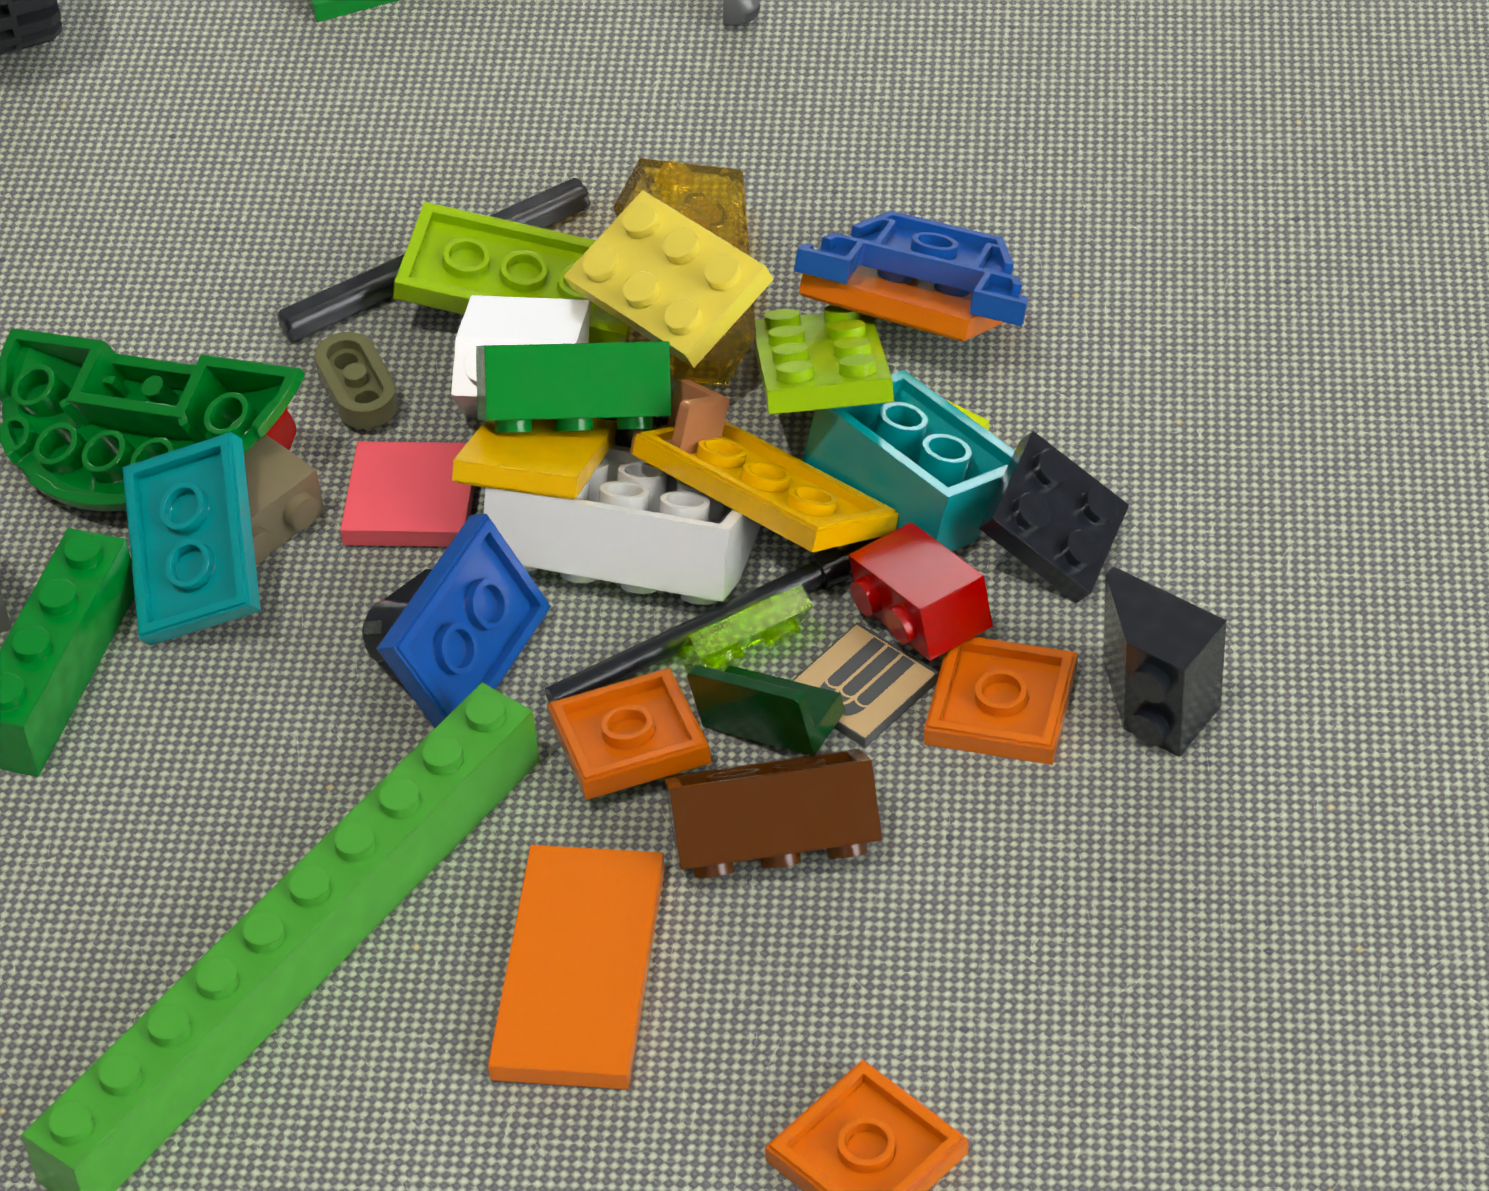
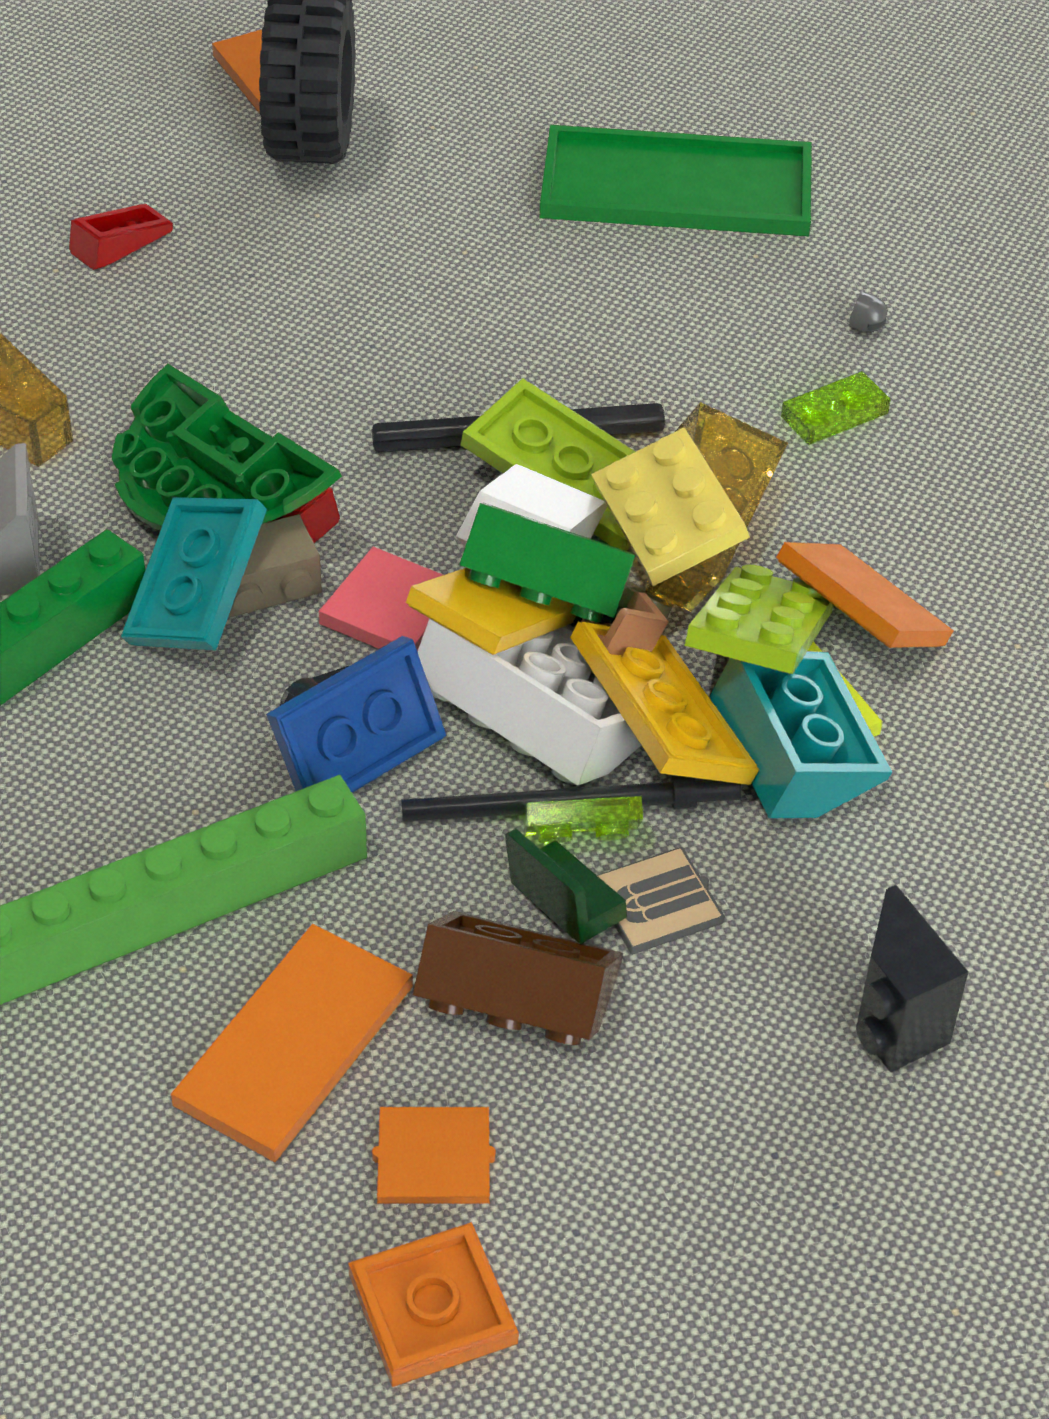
camera: 20 degrees right, 0 degrees up
(356, 380) = (400, 499): olive plate -> none
(628, 733) = (443, 864): orange tile -> none
(758, 116) = (835, 407): none -> clear neon green plate
(783, 1016) = (433, 1155): none -> orange piece
(920, 591) = (739, 841): red brick -> none
(928, 251) = (892, 554): blue wing -> none
(1001, 699) = (764, 960): orange tile -> none
(1054, 517) = (887, 822): black plate -> none

